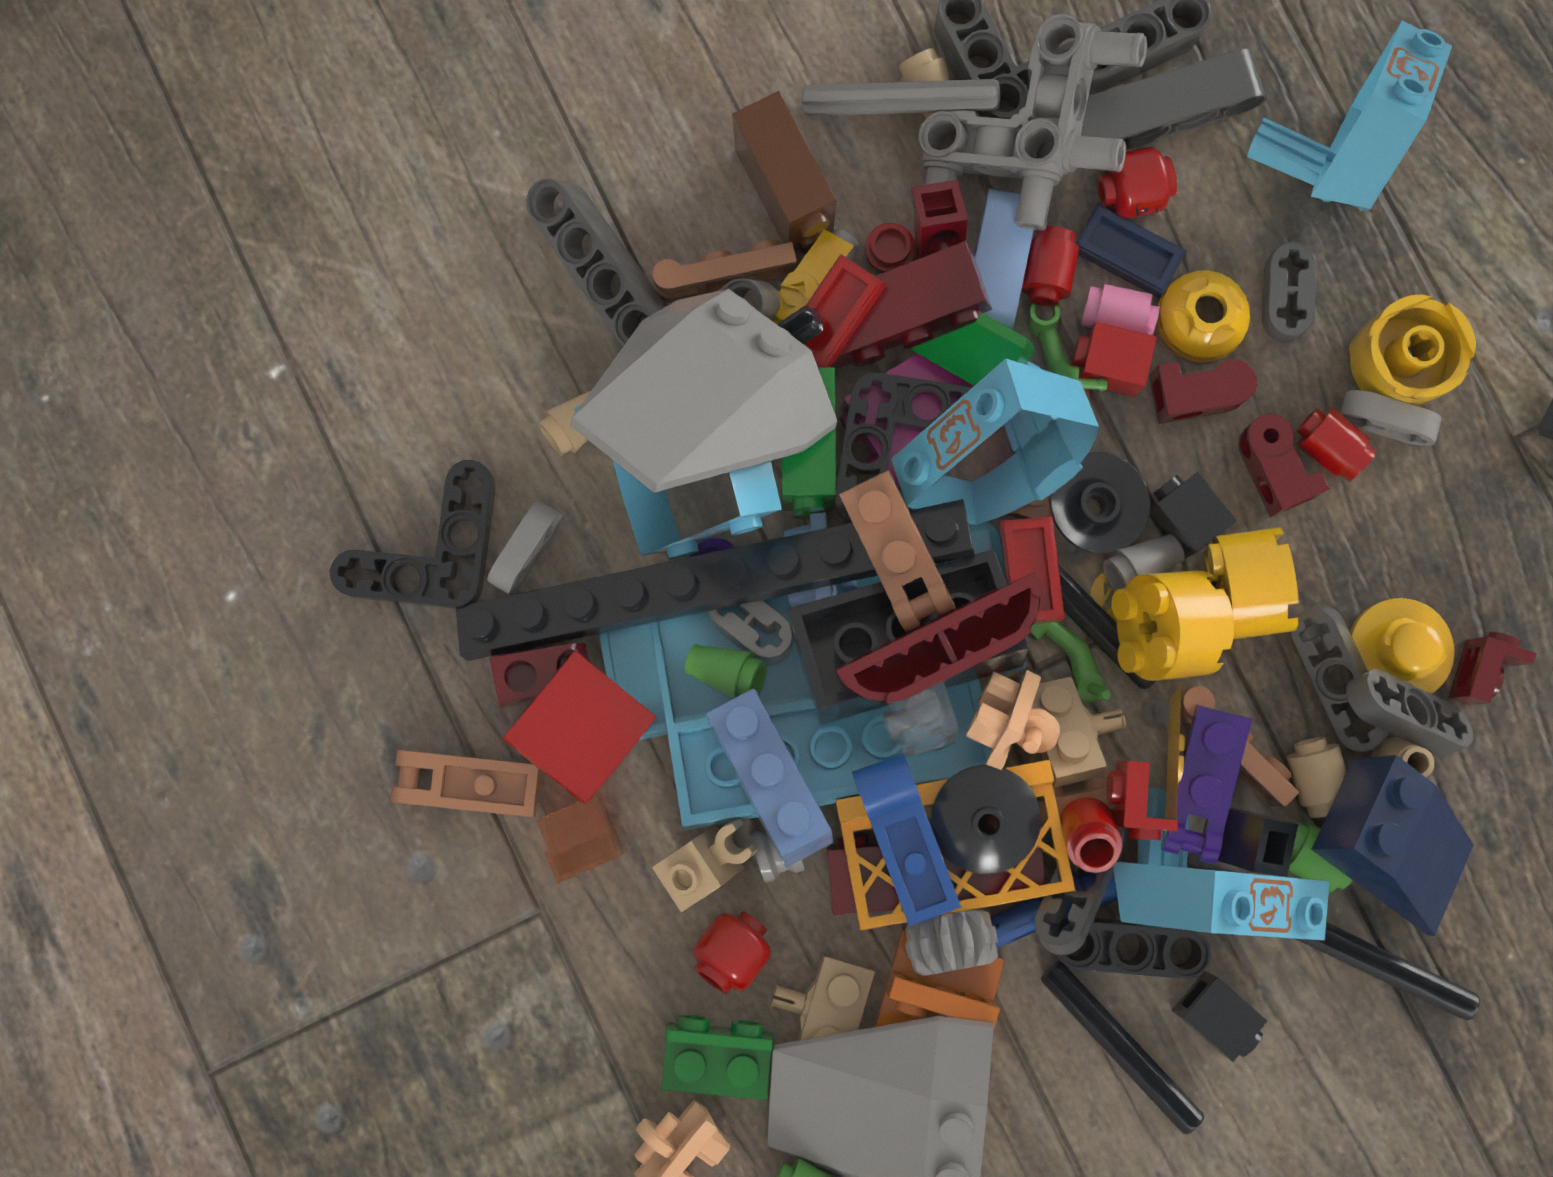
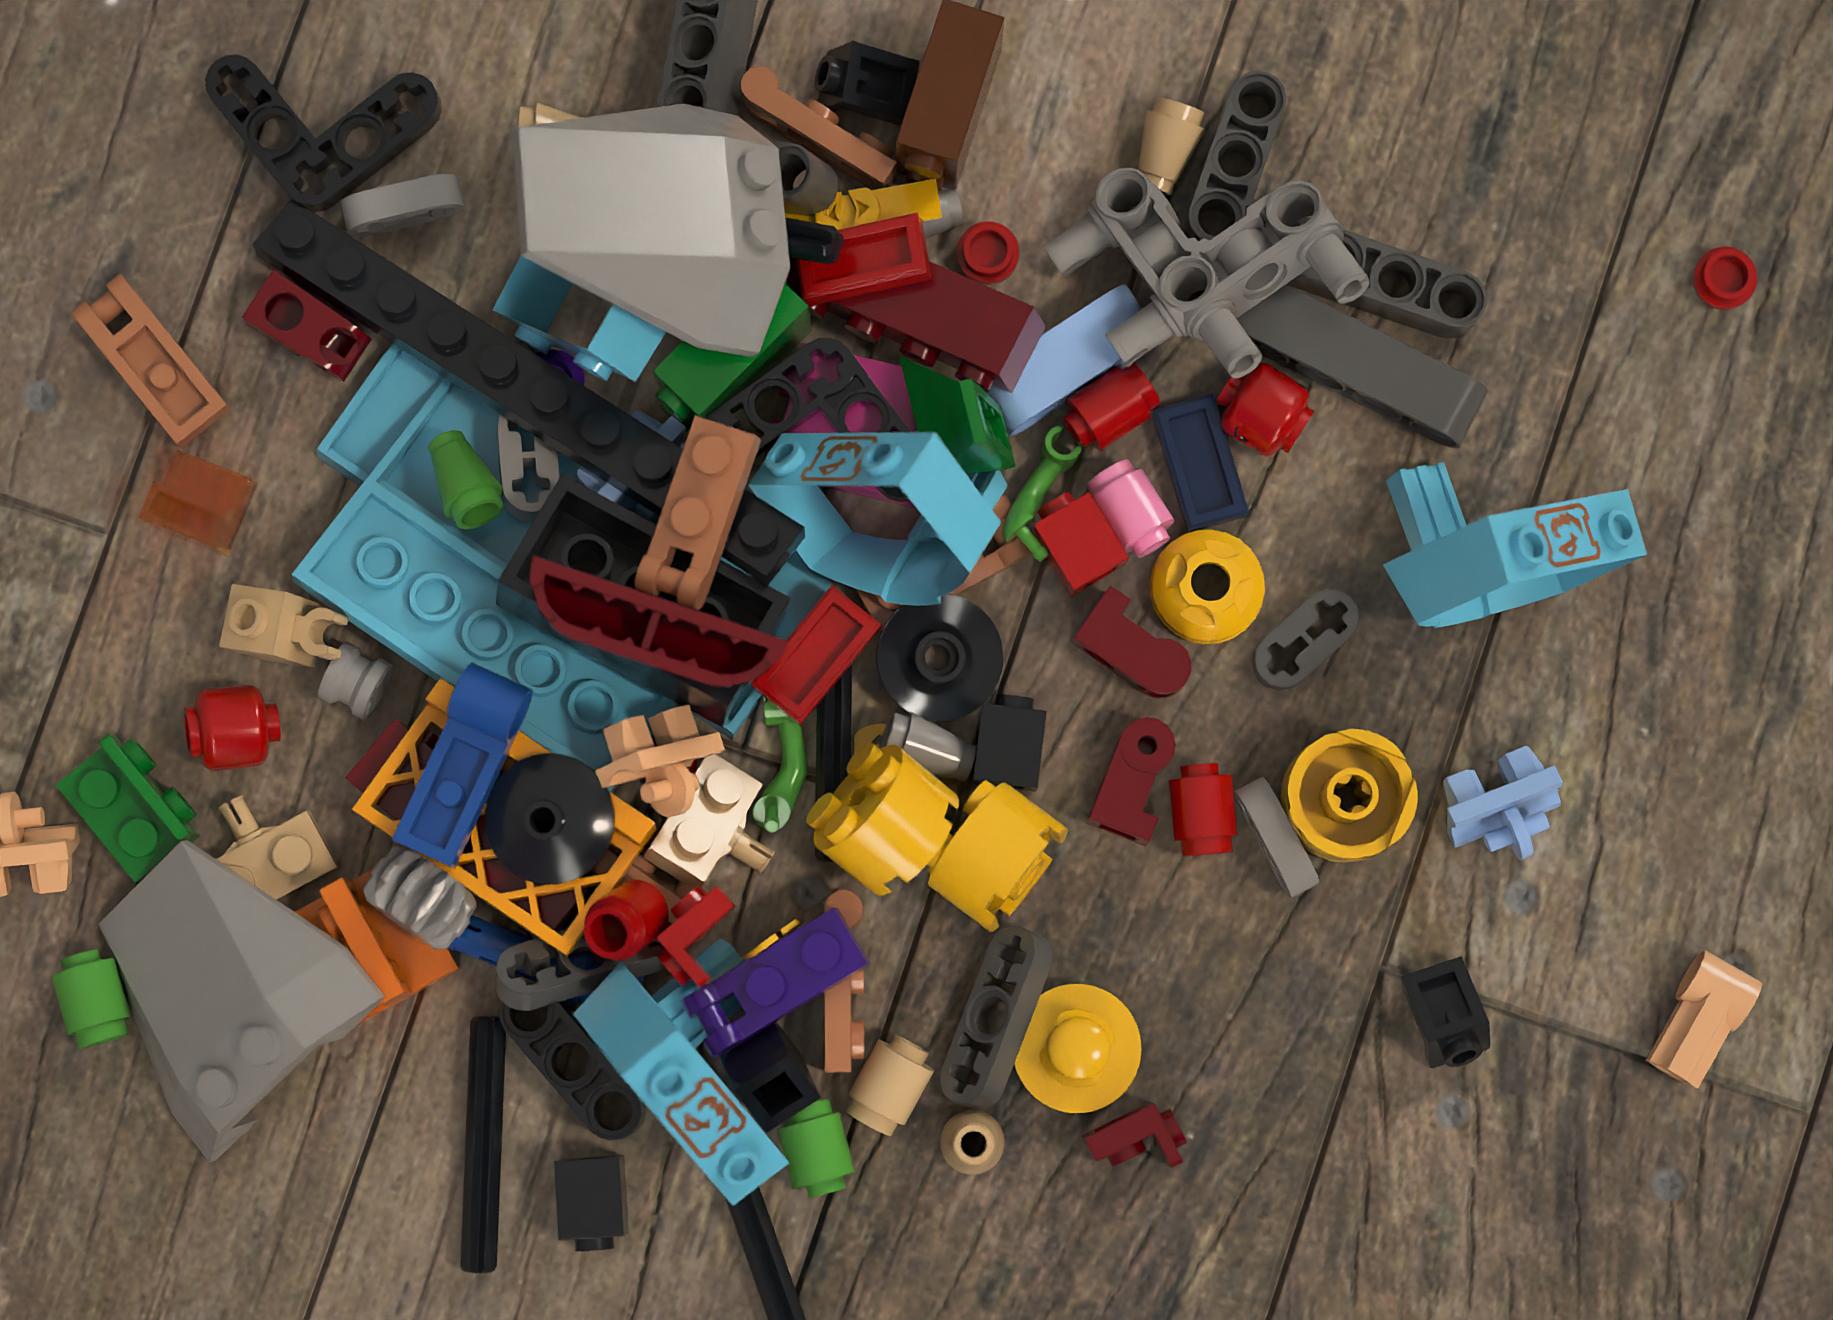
camera: 40 degrees right, 0 degrees up
(579, 727) = (290, 405): red slope -> none
(724, 216) = (866, 81): none -> black bracket
(770, 778) = (402, 603): medium blue brick -> none
(901, 97) = (1125, 127): light grey axle -> none
(922, 721) = (581, 681): clear brick -> none
(938, 217) = (1041, 265): dark red leg -> none
(1396, 839) = (893, 1200): dark blue slope -> none
(1409, 712) = (996, 1087): dark grey beam -> none
(1498, 252) = (1506, 813): none -> light blue hips

